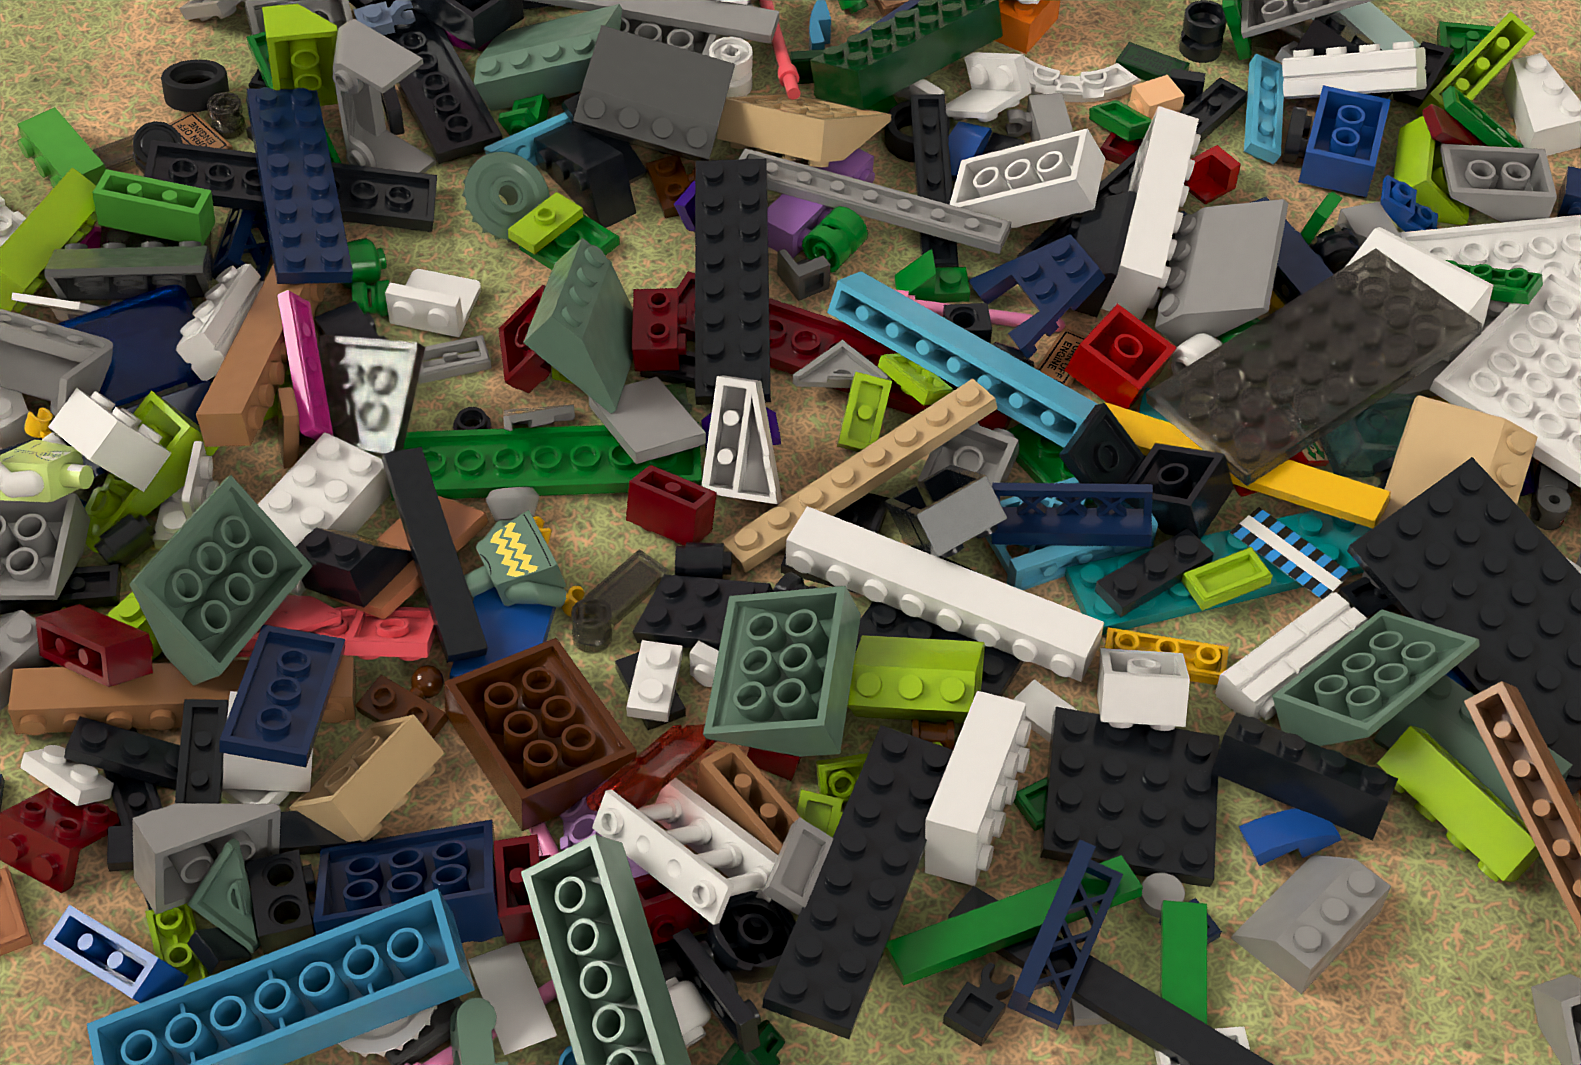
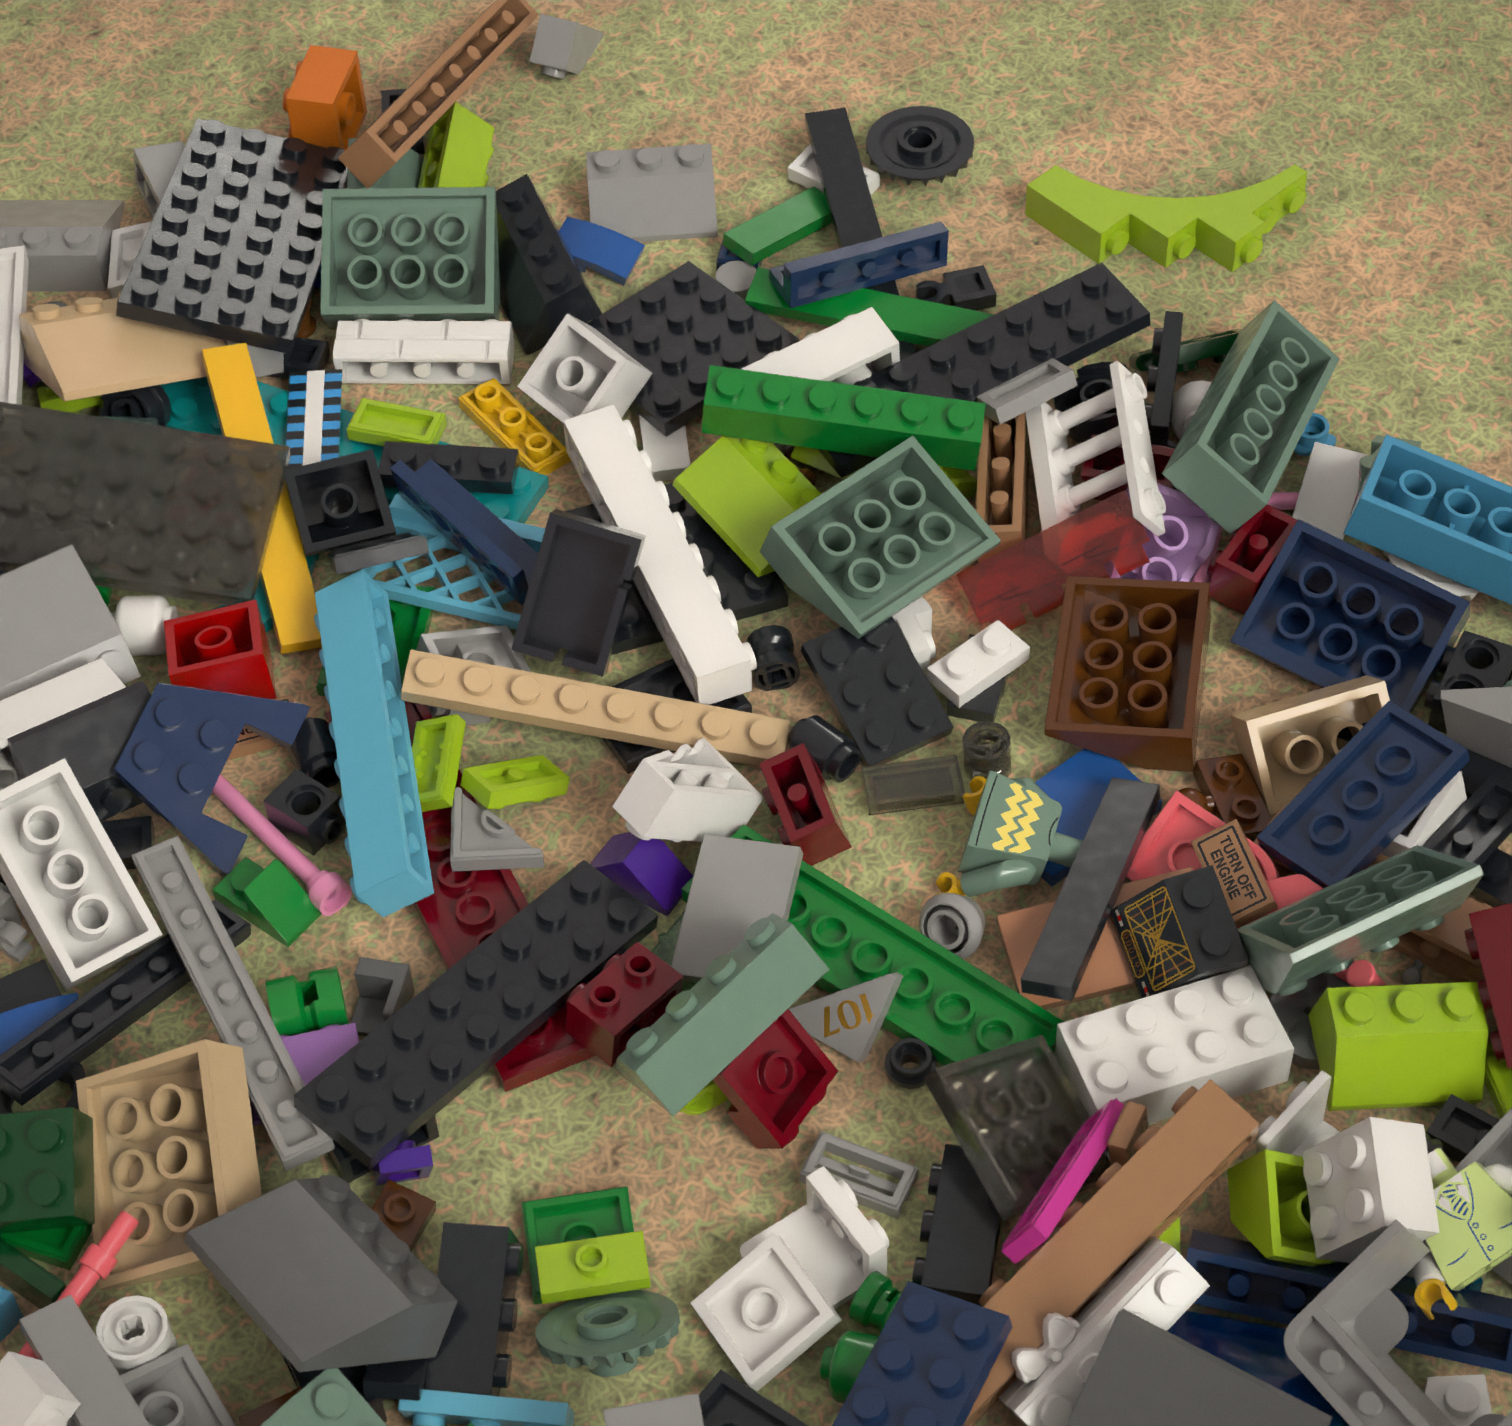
camera: 135 degrees left, 0 degrees up
(252, 290) = (1057, 1334): none -> white piece
(343, 611) = (1237, 872): none -> medium nougat tile
(432, 255) = (765, 1311): none -> white plate
(893, 718) = (840, 416): none -> green brick

